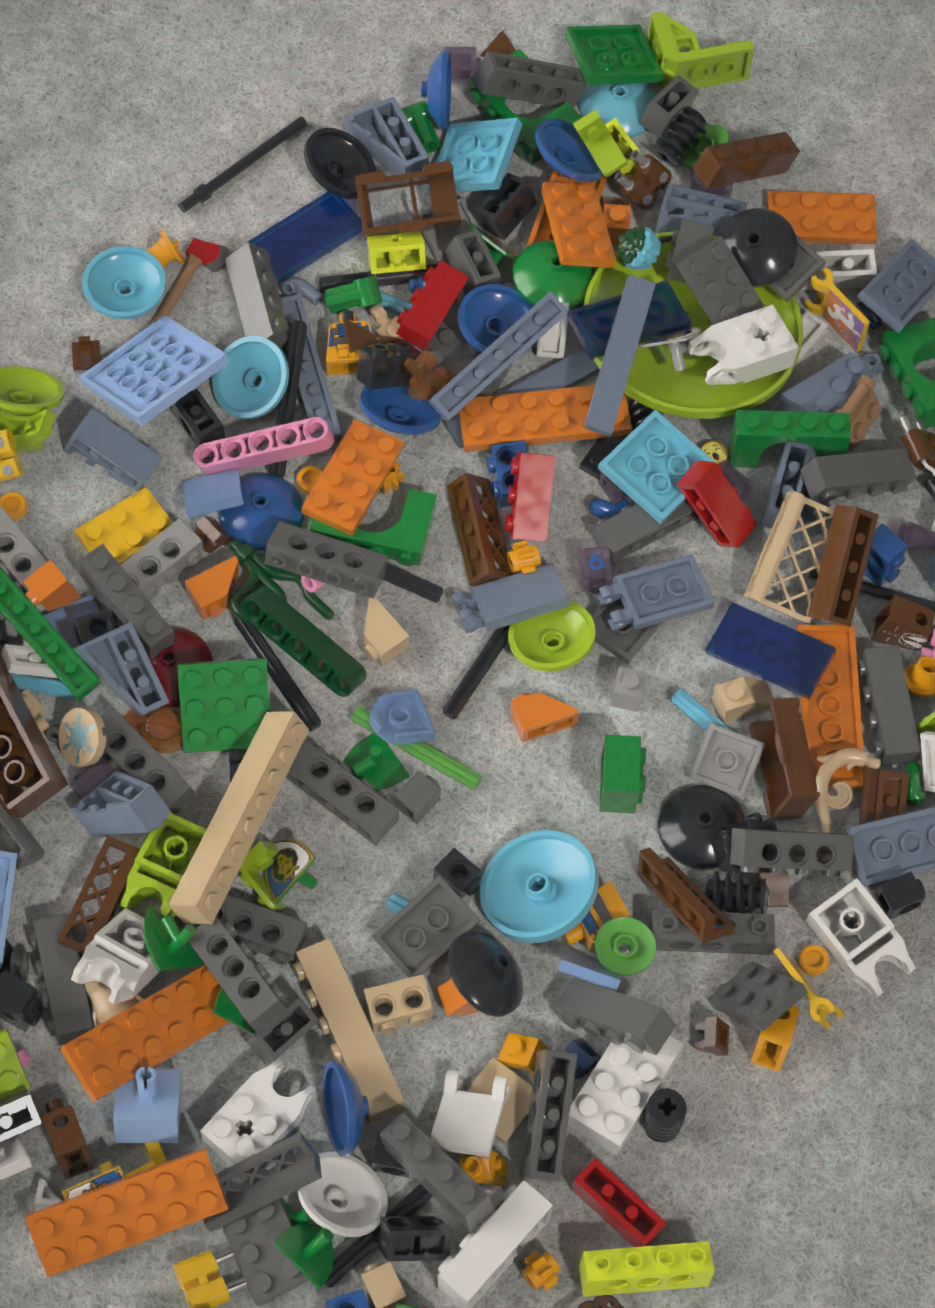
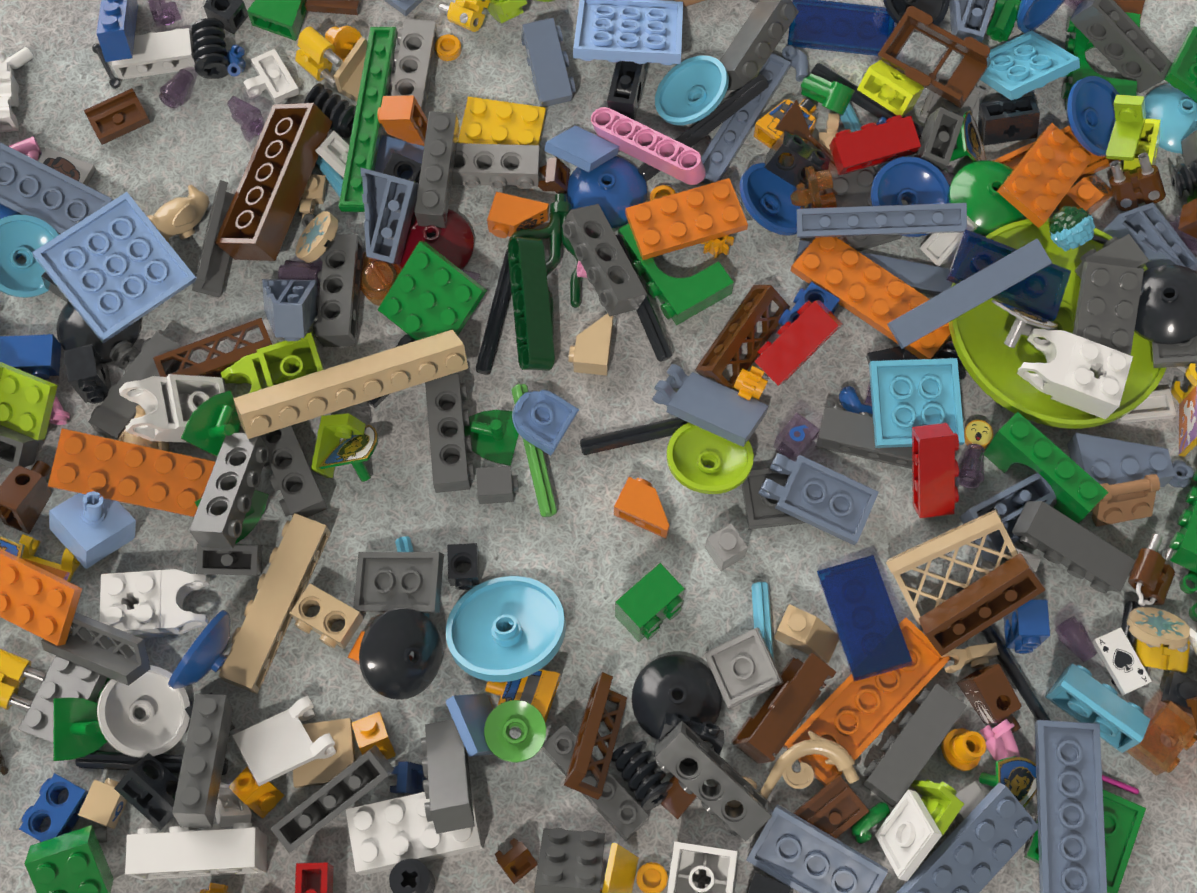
camera: 50 degrees right, 5 degrees up
(868, 608) = (975, 655): none -> tan plate

